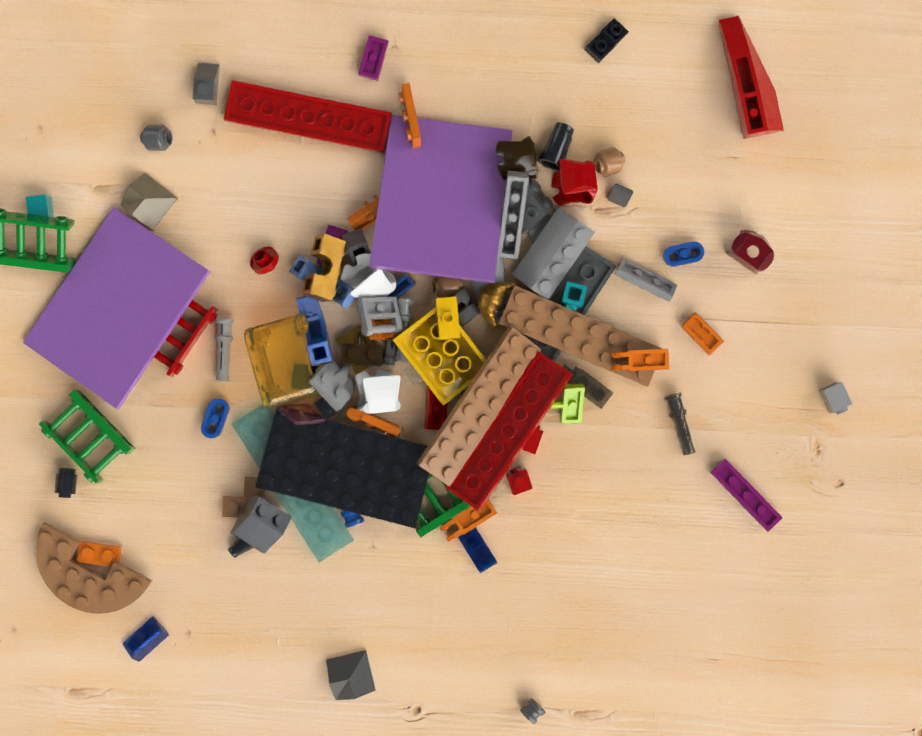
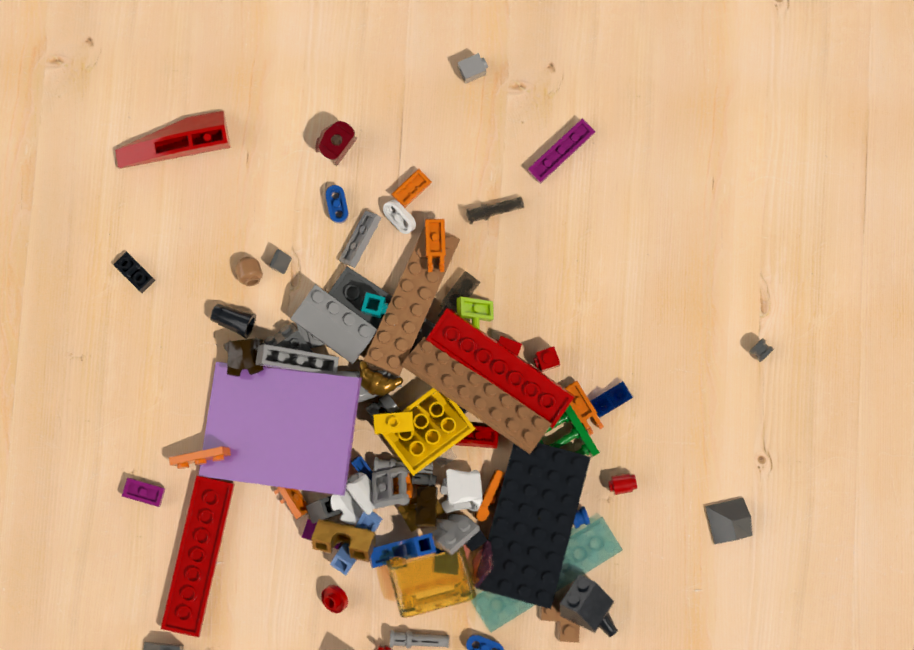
camera: 85 degrees left, 5 degrees down
(388, 562) = (622, 483): none -> red brick
(446, 286) = (363, 425): medium nougat head -> none
(575, 182) = (267, 302): red piece -> none
(671, 321) = (399, 216): none -> white plate

